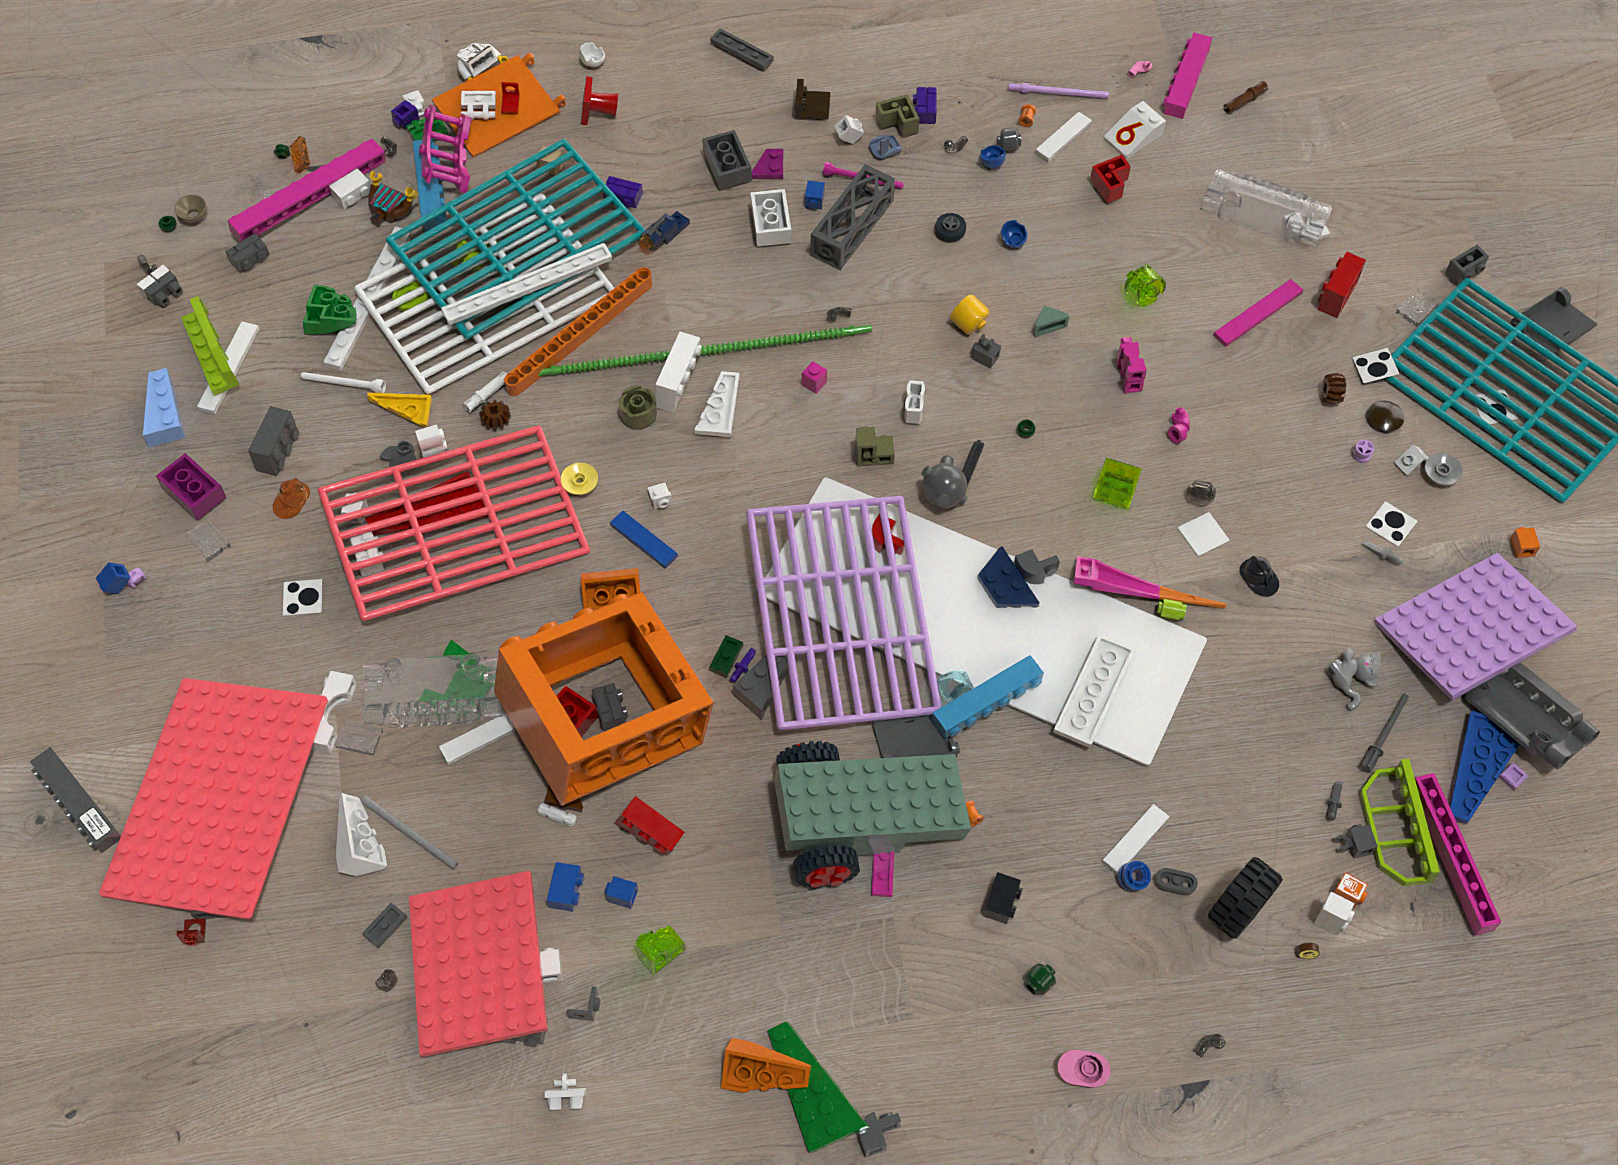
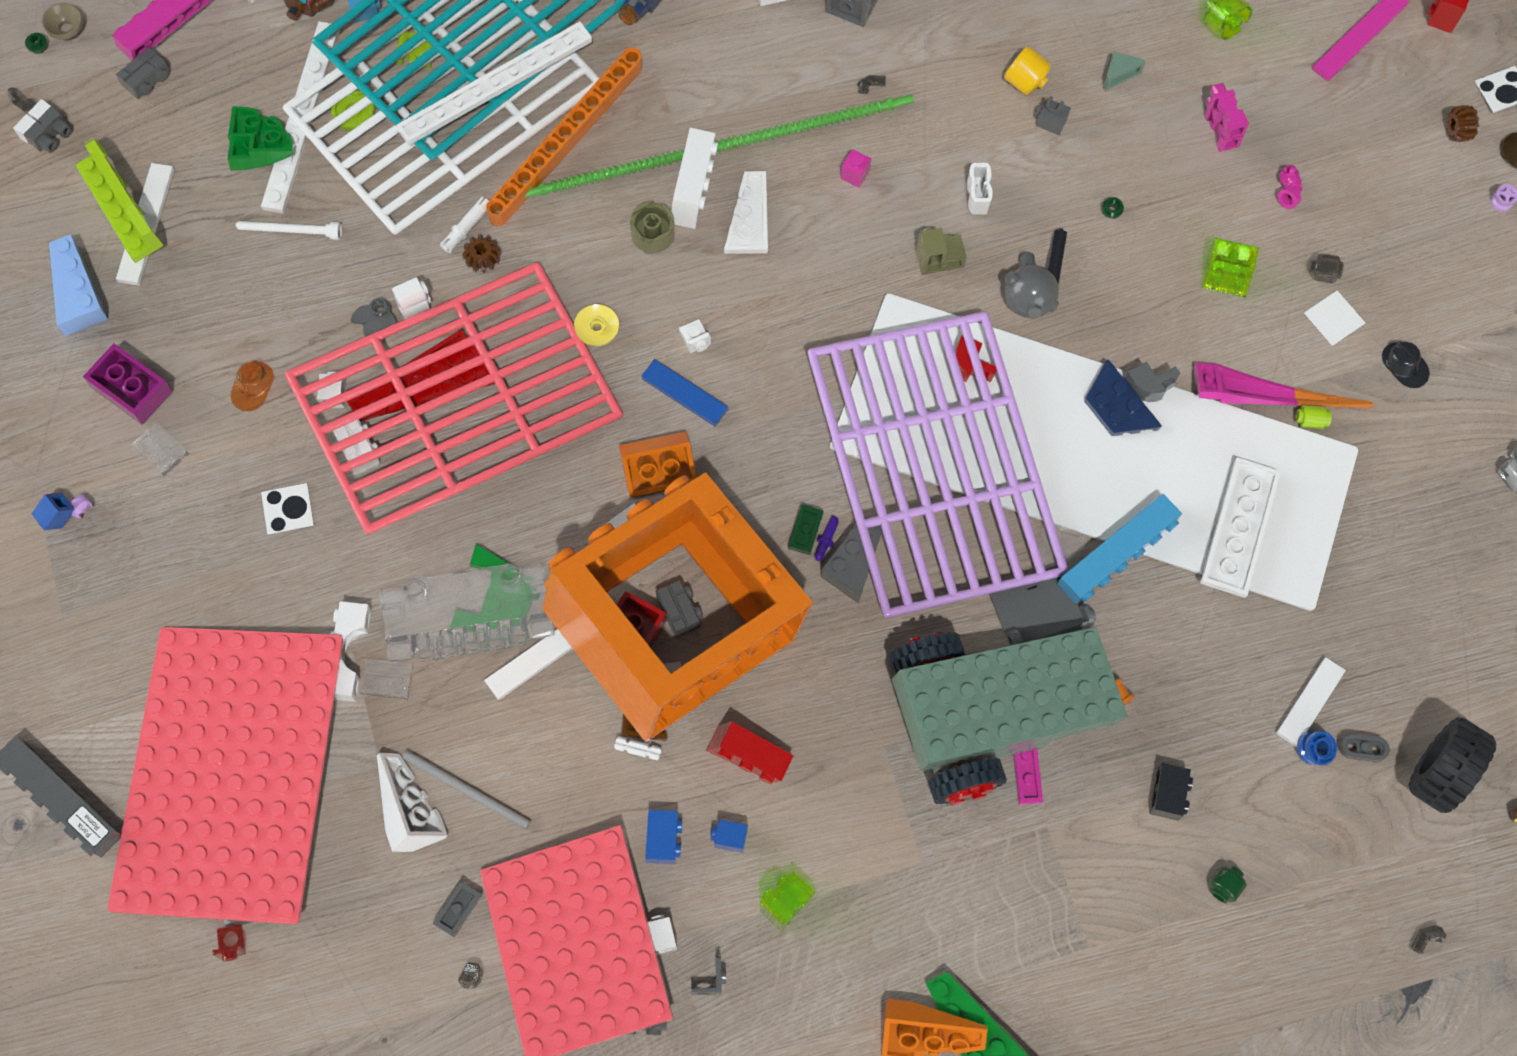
camera: 10 degrees left, 10 degrees up
(273, 441) = (219, 315): dark grey brick -> none
(409, 406) = (377, 253): yellow wing -> none
(958, 690) = (1088, 529): clear light blue piece -> none
(1084, 1068) = (1295, 987): bright pink piece -> none

